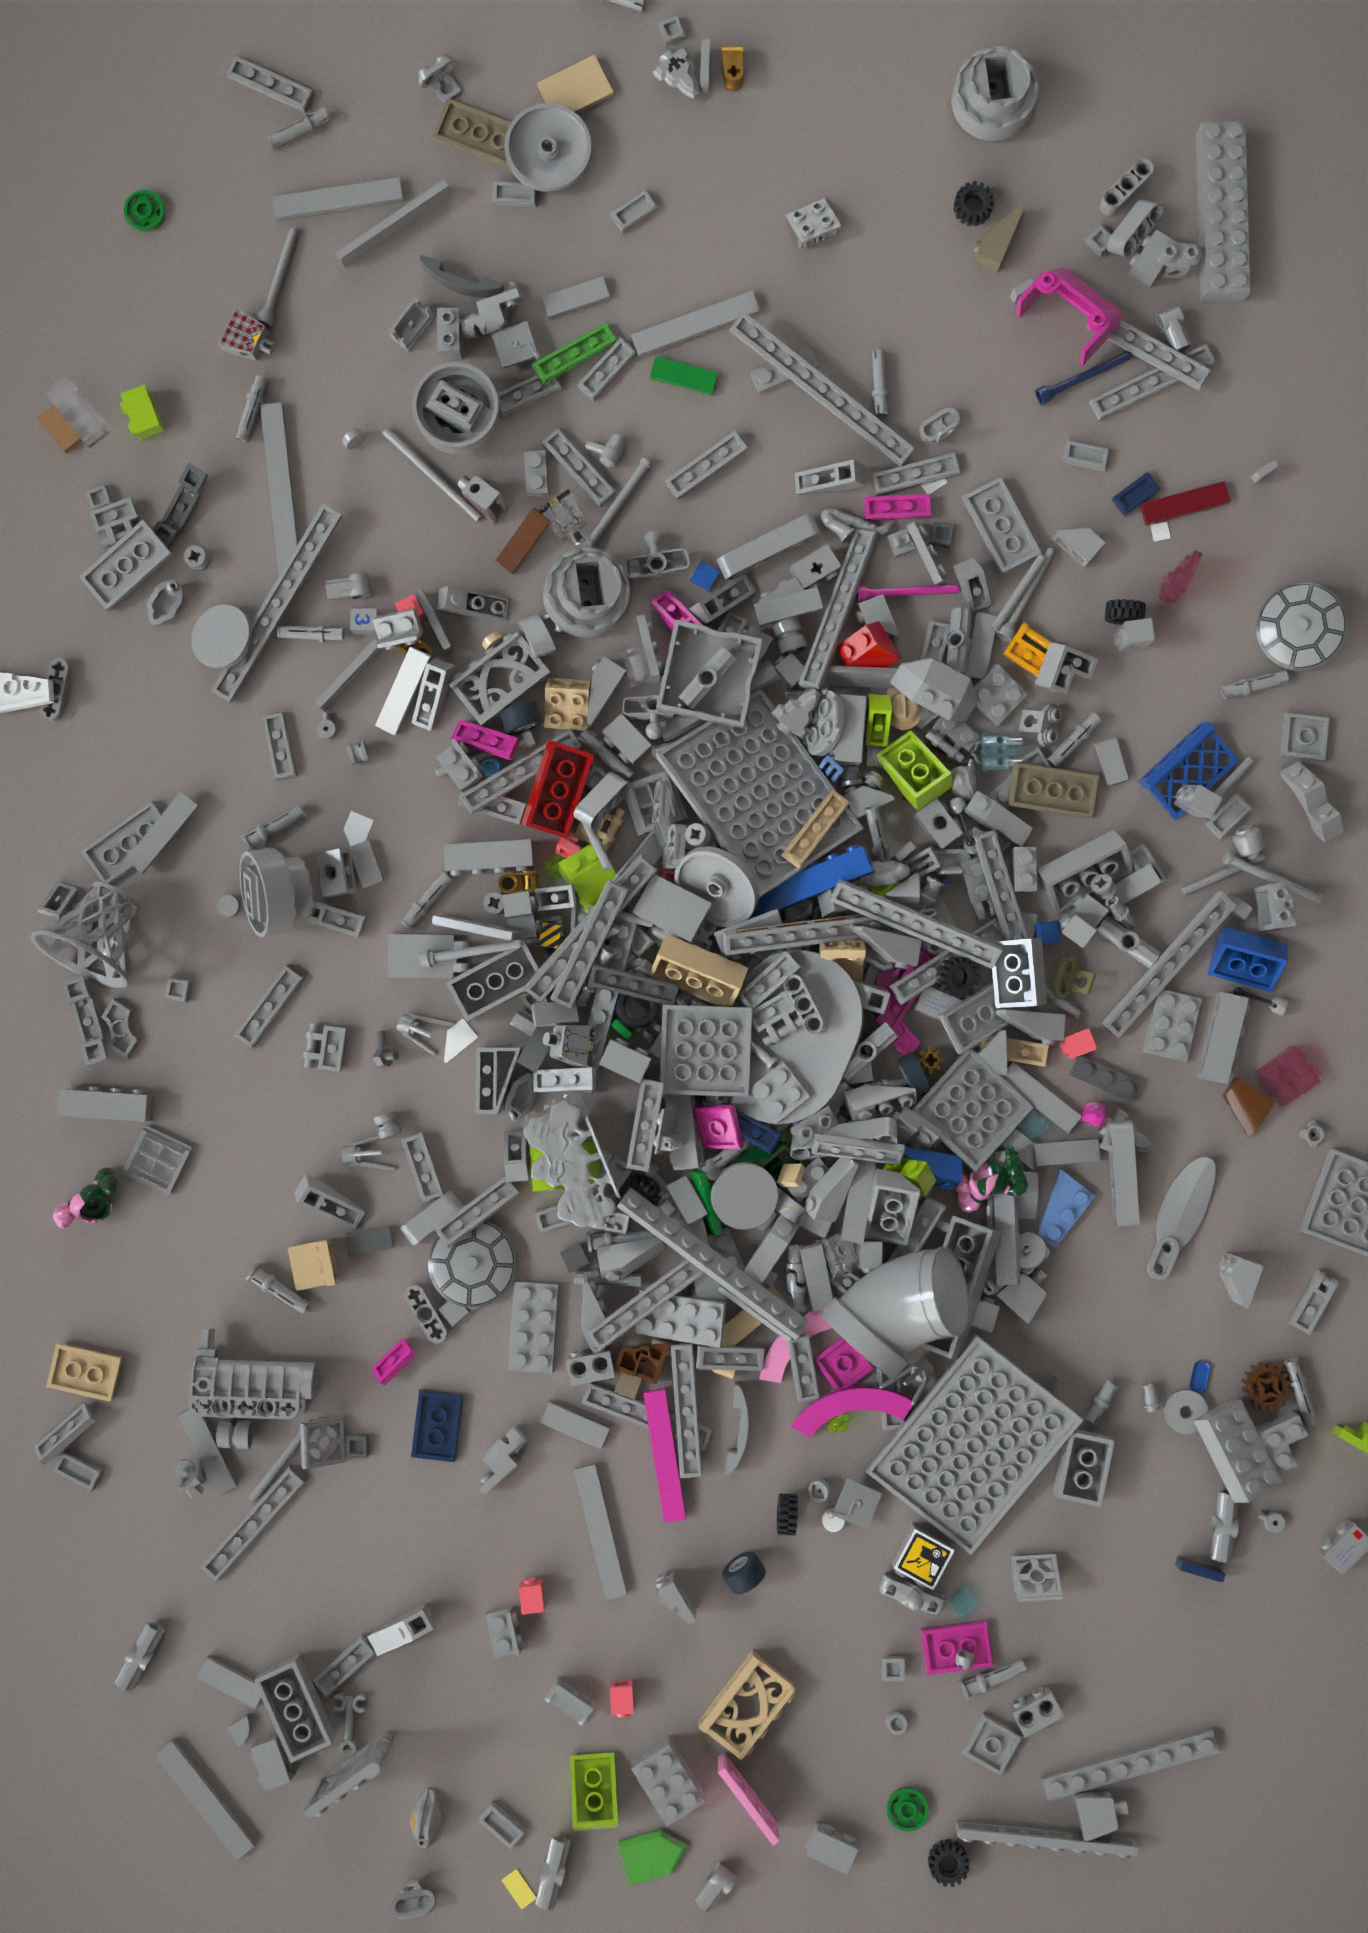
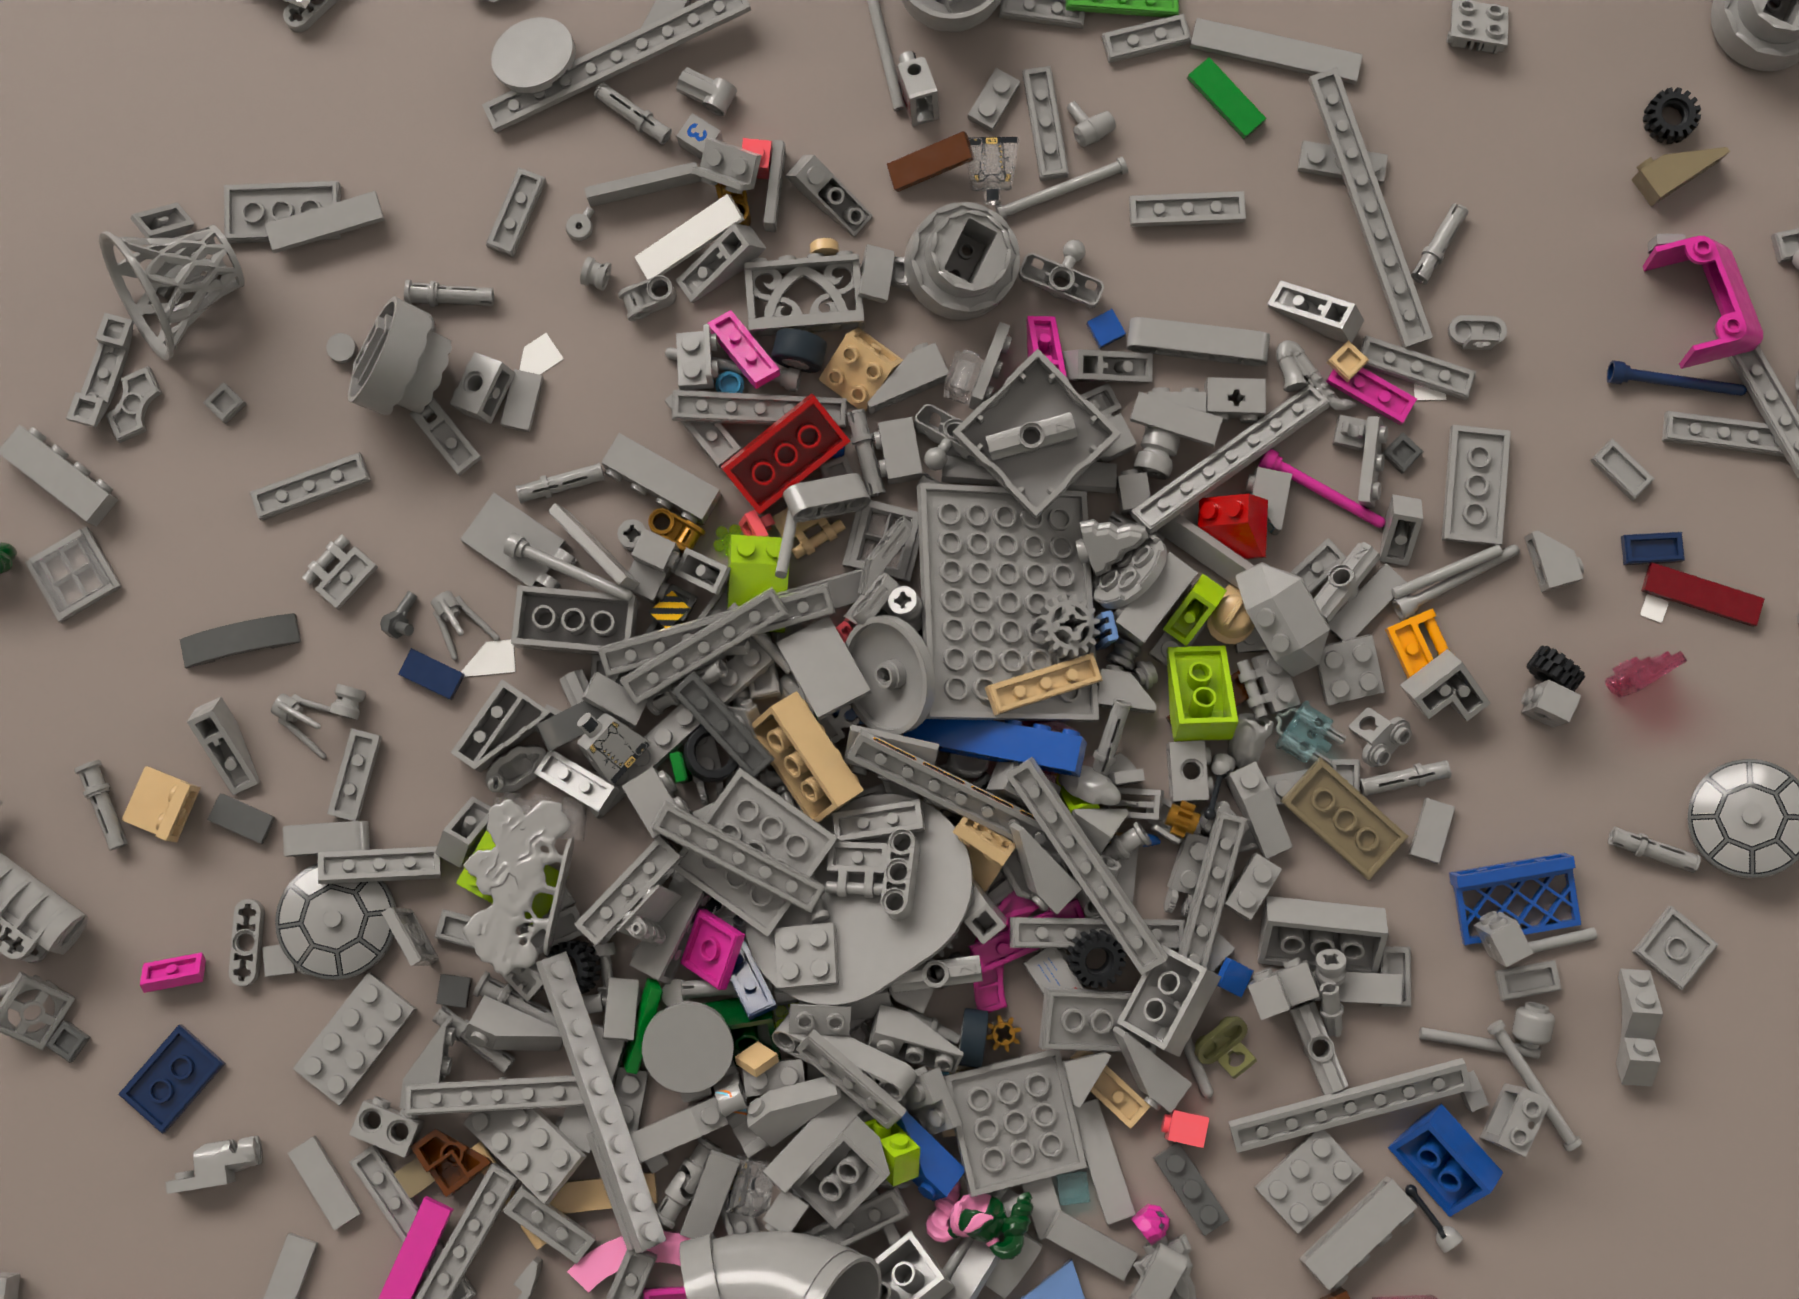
camera: 30 degrees right, 5 degrees down
(291, 1131) = (239, 639): none -> dark grey slope
(400, 747) = (645, 297): none -> light grey piece
(427, 1073) = (431, 674): none -> dark blue tile
(528, 1242) = (410, 936): none -> light grey tile
(699, 1060) = (737, 856): none -> light grey tile
(802, 773) = (1071, 614): none -> light grey gear
(871, 498) = (1347, 361): none -> tan tile
(955, 856) = (1182, 819): none -> pearl gold gear

